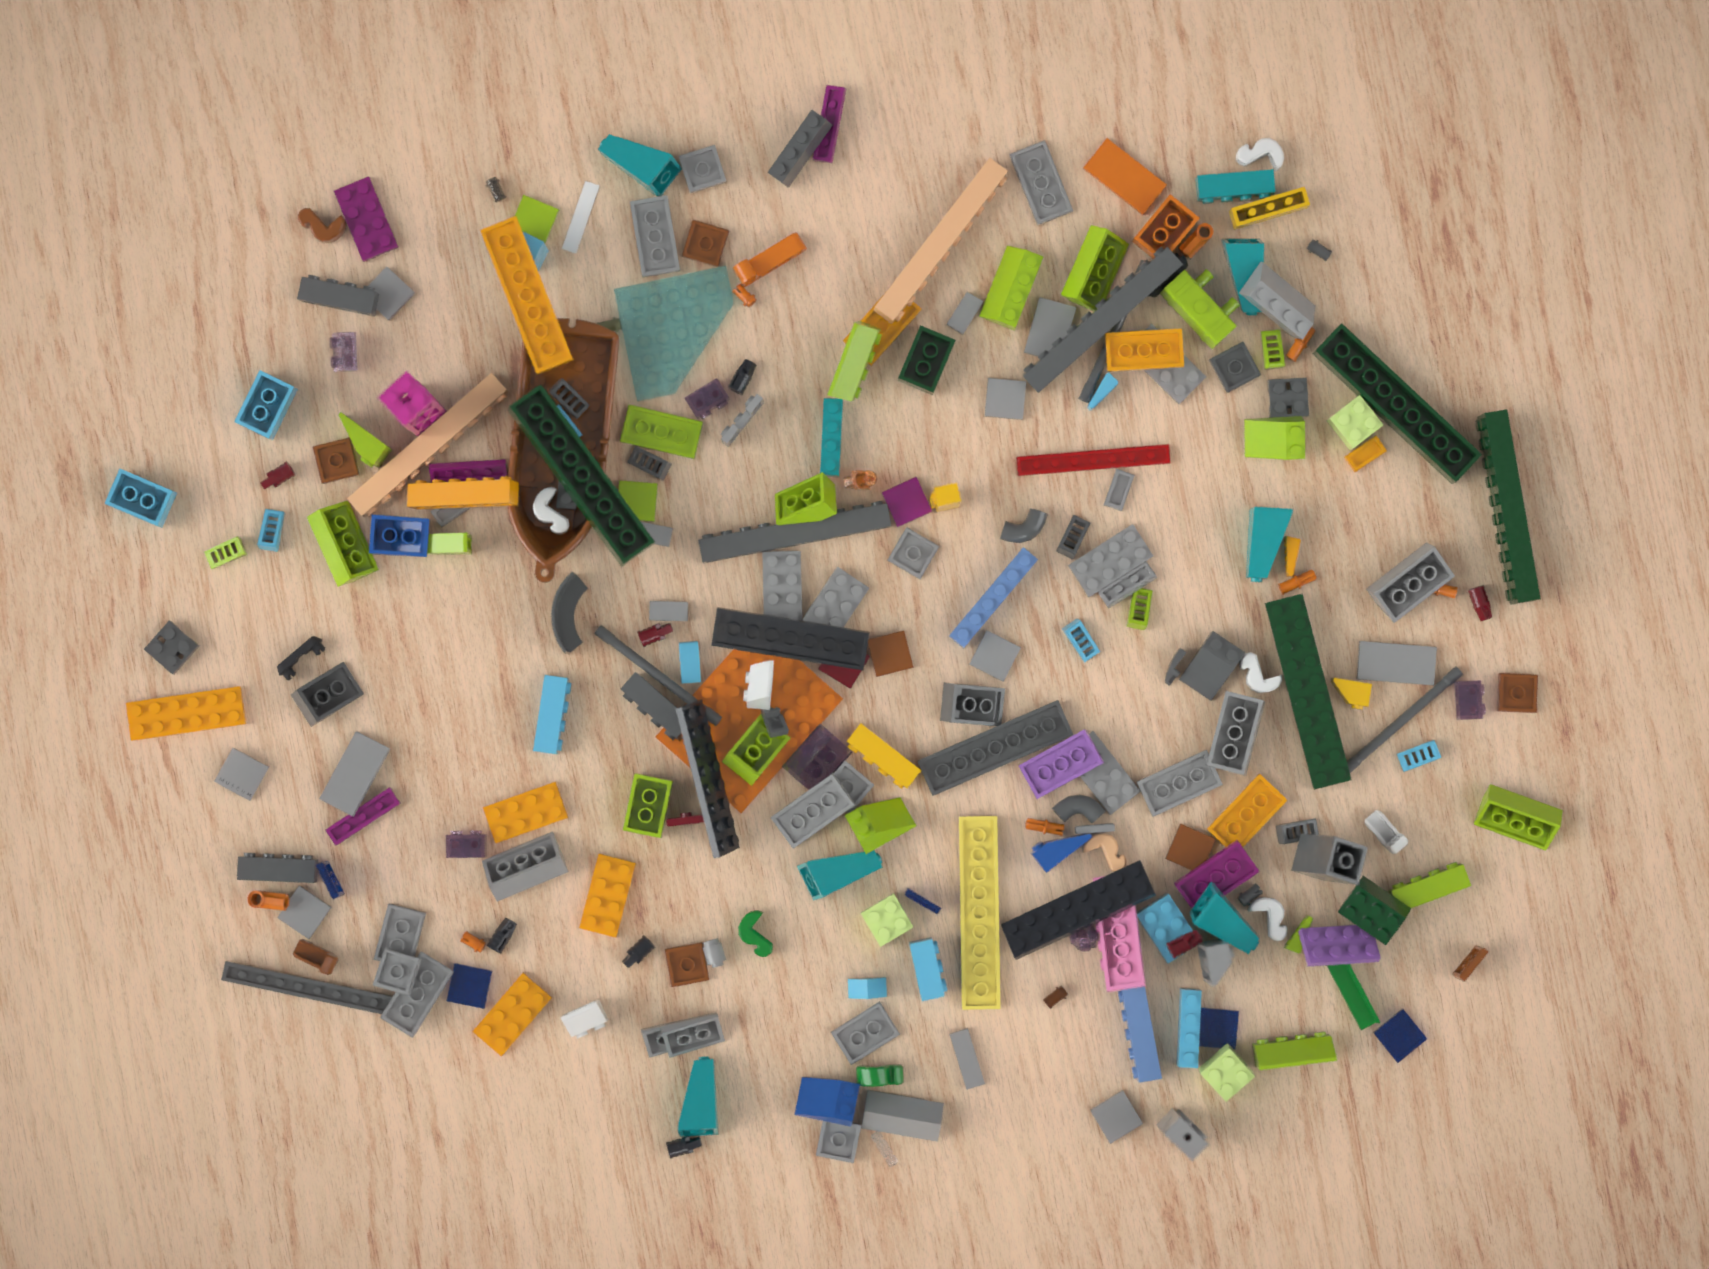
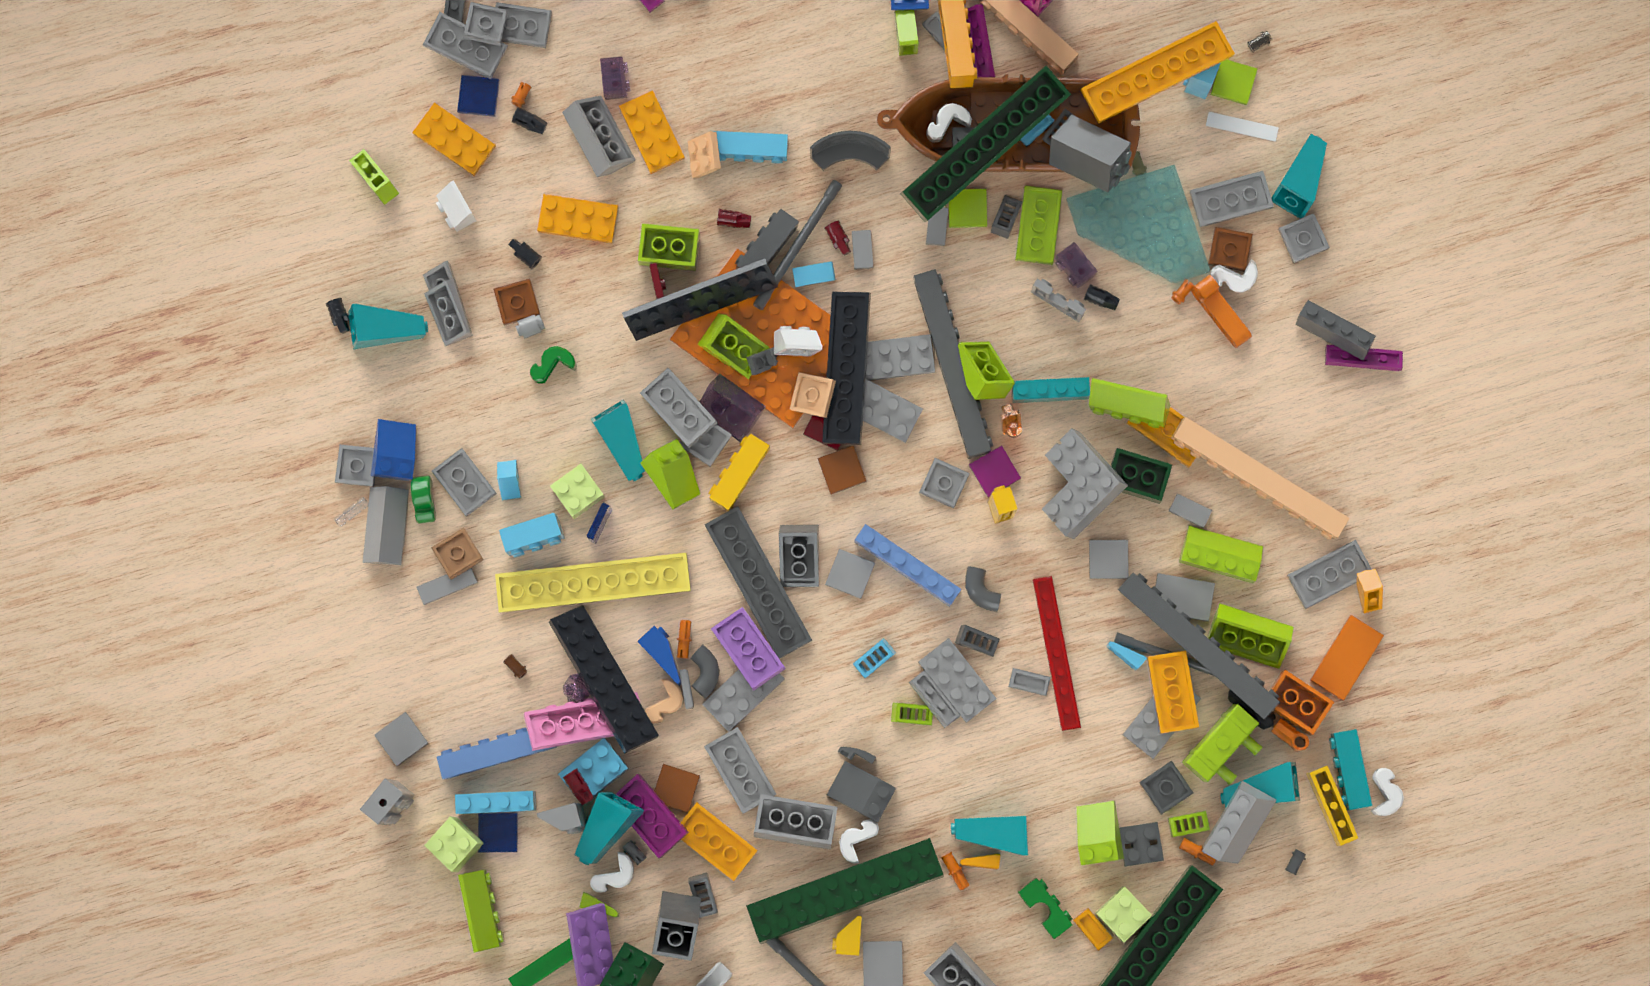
camera: 90 degrees right, 5 degrees down
(543, 1099) = (374, 176): none -> lime slope
(556, 761) = (704, 154): none -> light nougat plate
(601, 371) = (1090, 153): none -> dark grey brick
(624, 738) = (733, 219): none -> dark red hinge
(740, 241) = (1234, 280): none -> white animal
(815, 675) = (812, 395): none -> light nougat plate
(932, 408) = (1089, 487): none -> light grey piece
(937, 1045) = (457, 553): none -> medium nougat tile
(1062, 146) = (1370, 590): none -> light orange slope
(1355, 487) = (1058, 920): none -> green arch

